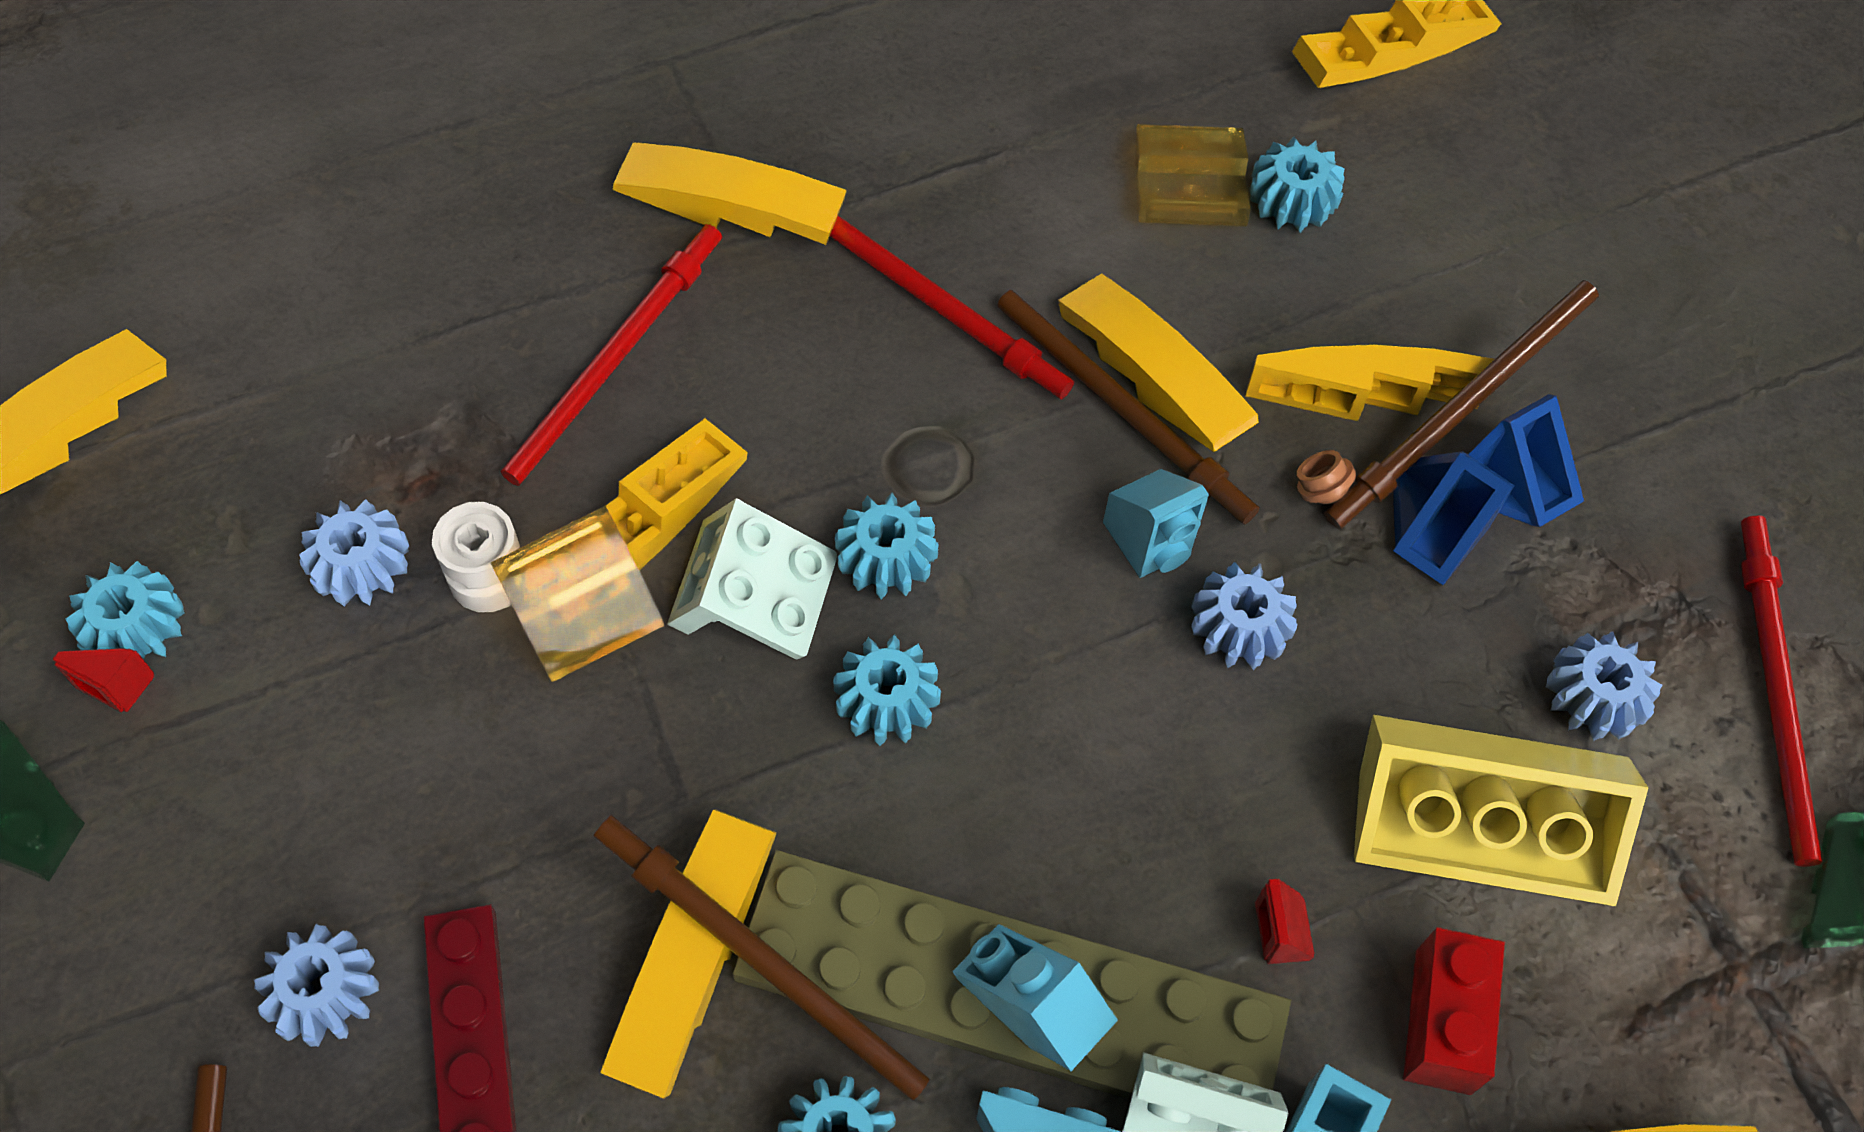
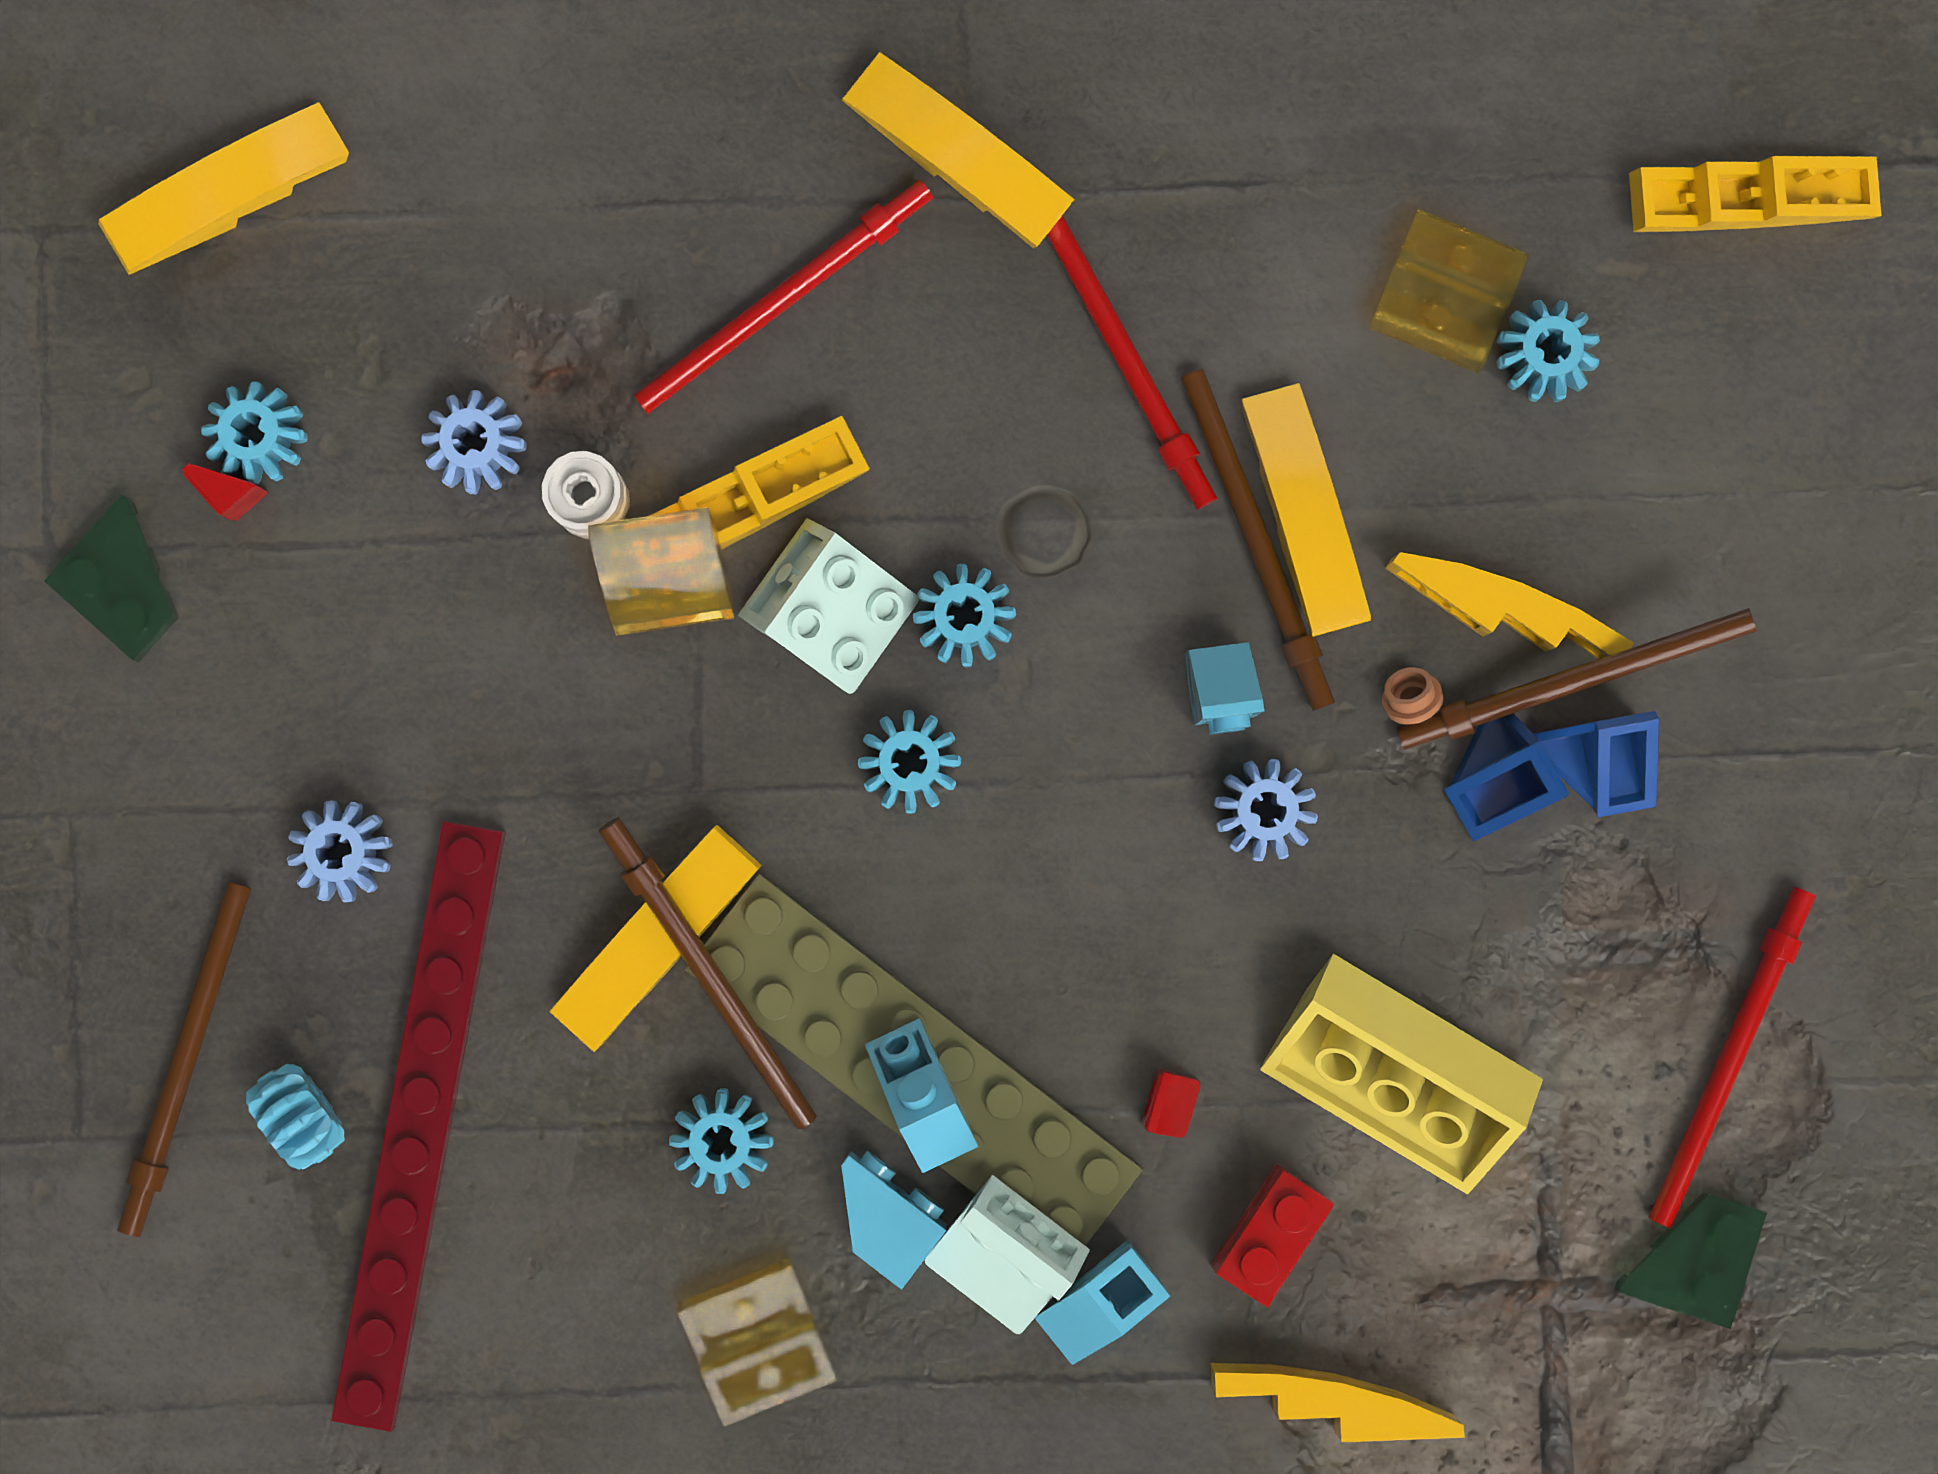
camera: 25 degrees right, 25 degrees up
(1603, 686) = (1574, 983): light blue gear -> none

